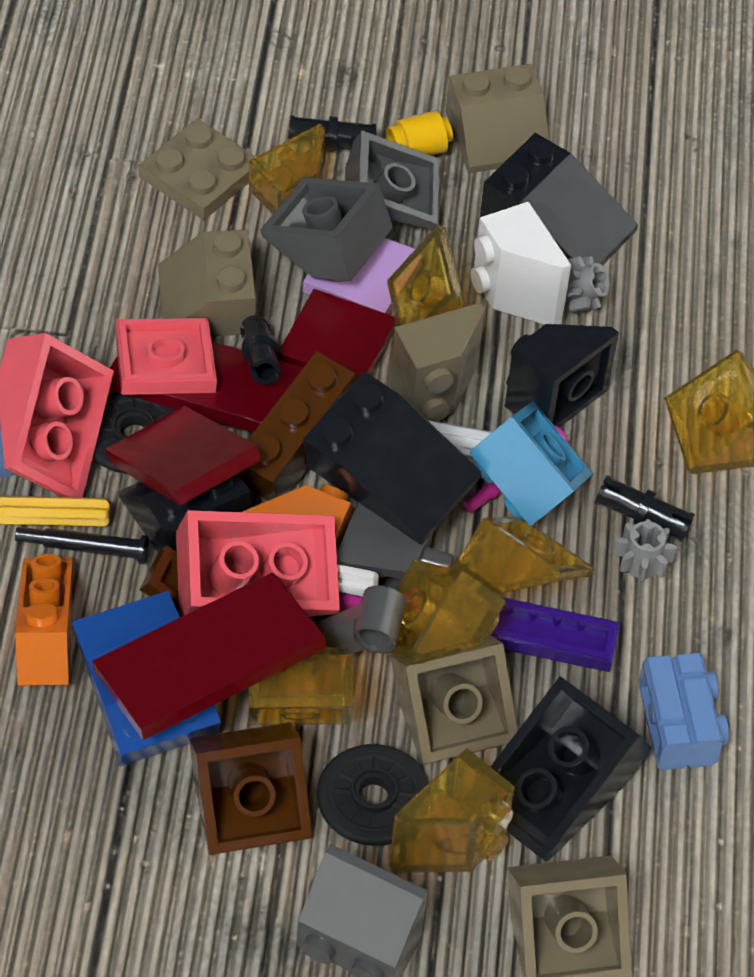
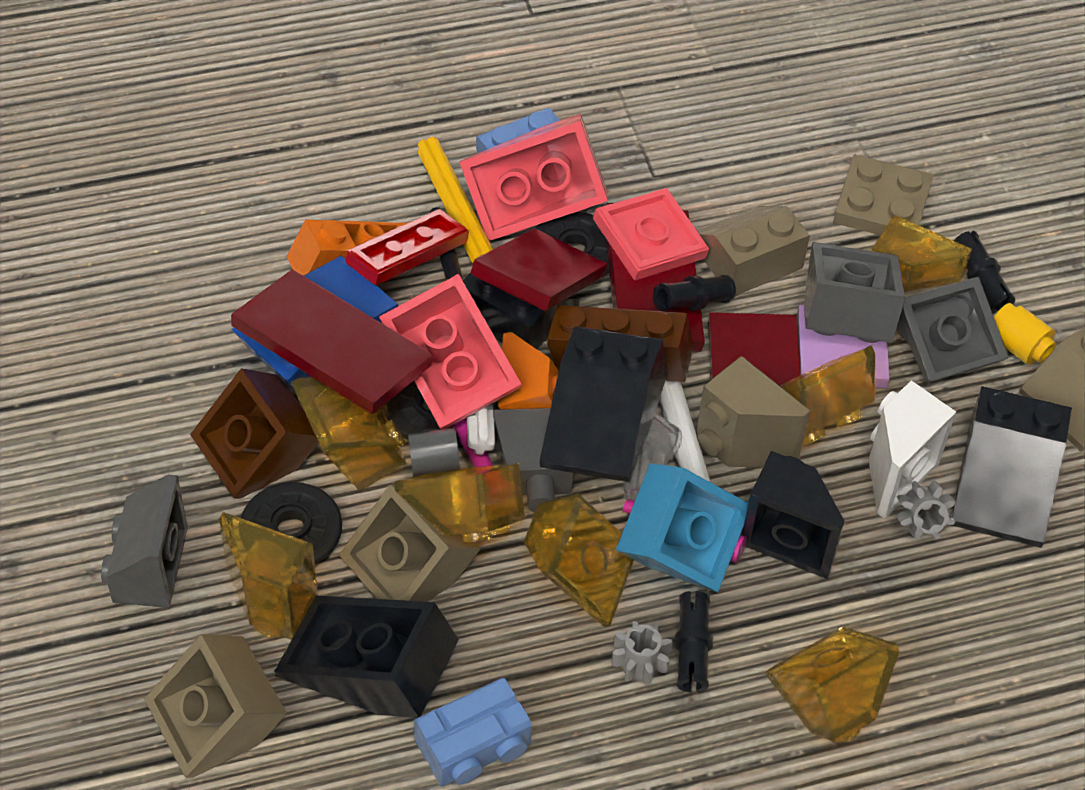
camera: 70 degrees right, 0 degrees up
(83, 562) = (407, 247): none -> red tile
(557, 634) = (512, 600): dark purple plate -> none

